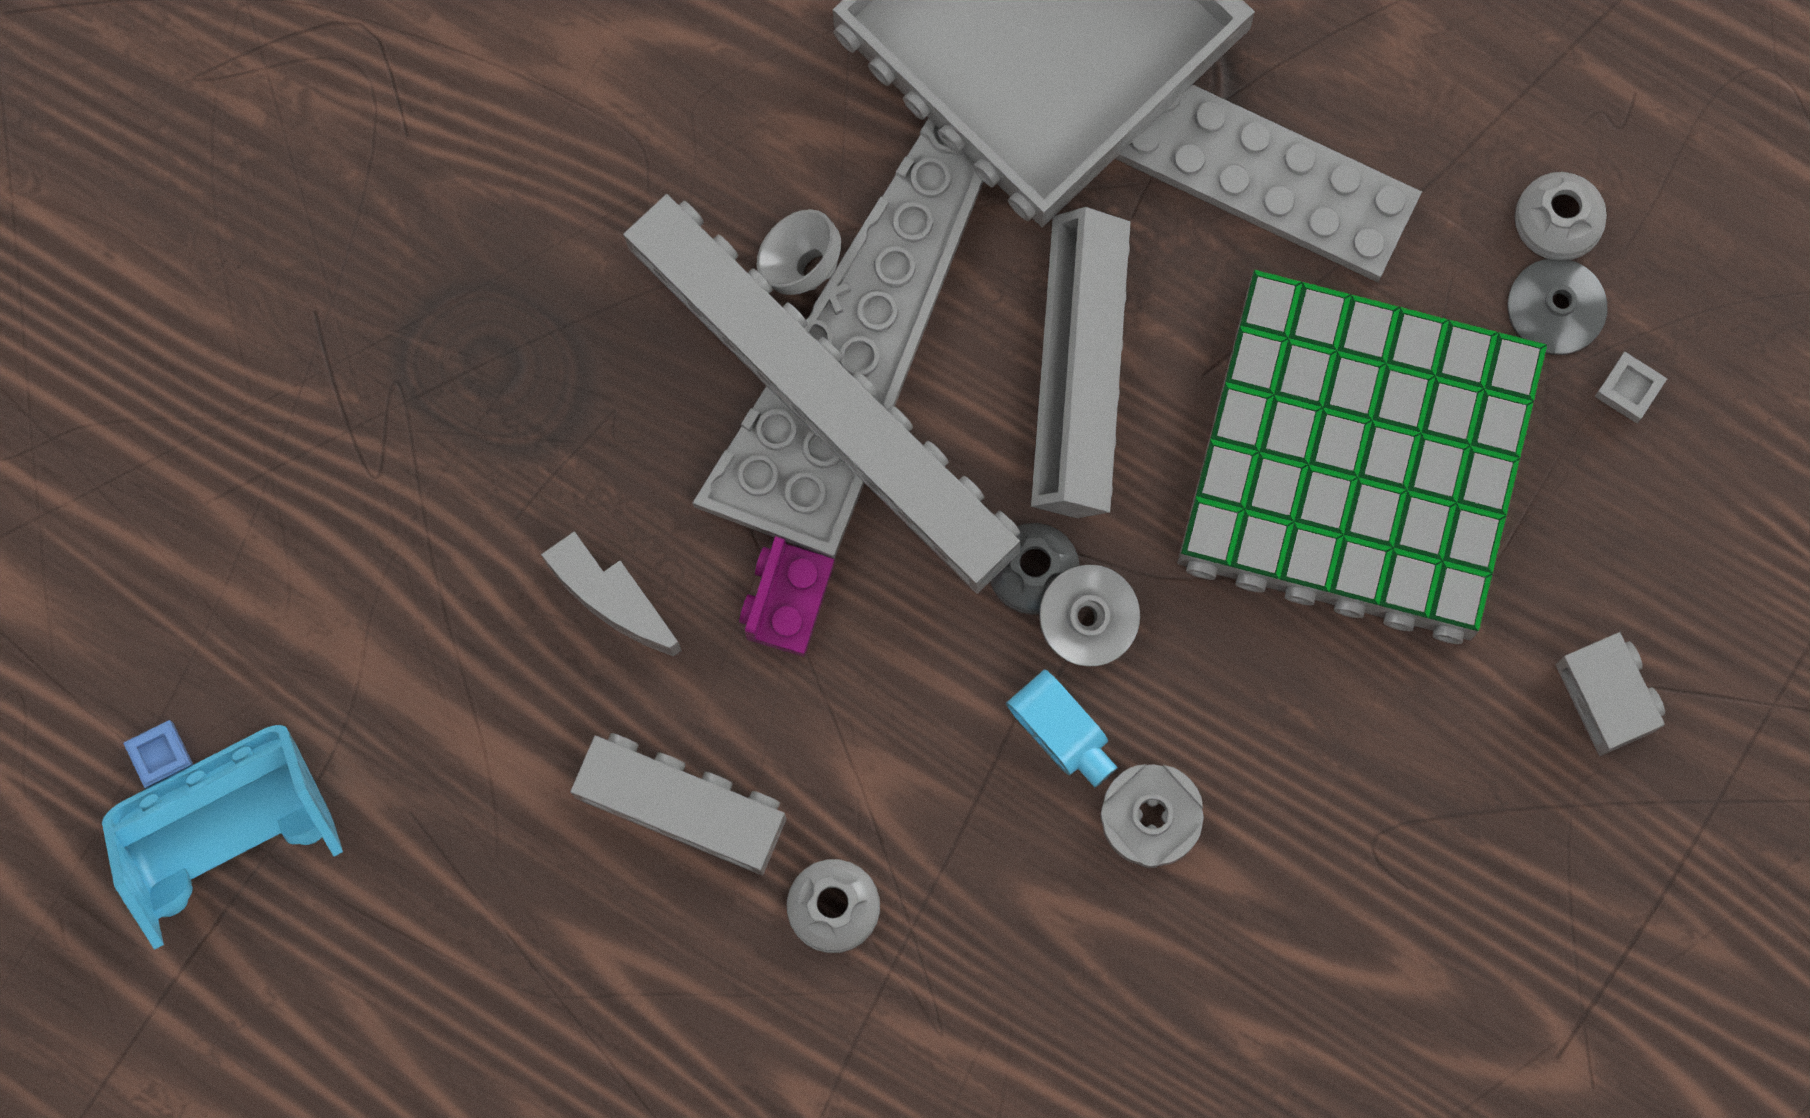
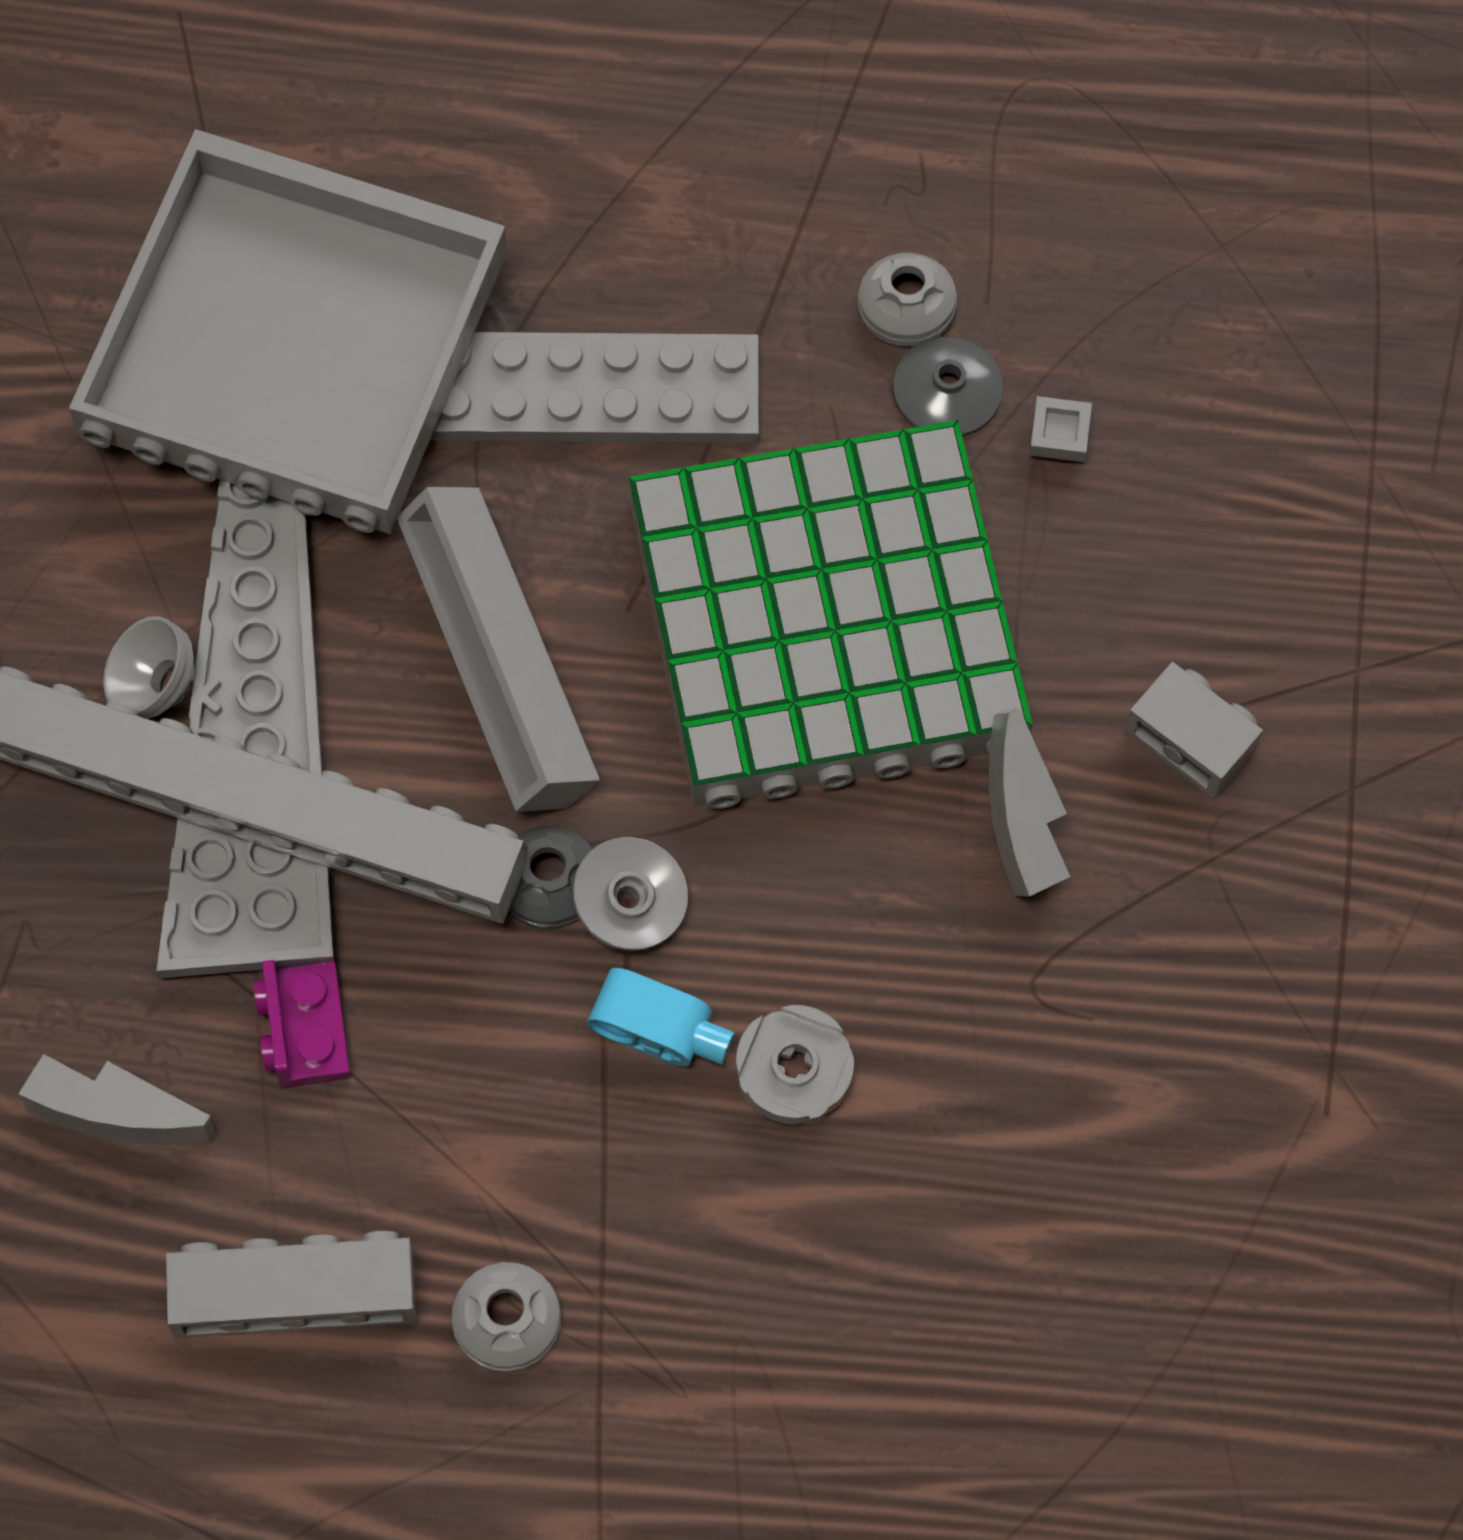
camera: 30 degrees left, 10 degrees down
(1436, 696) = (1021, 807): none -> light grey slope

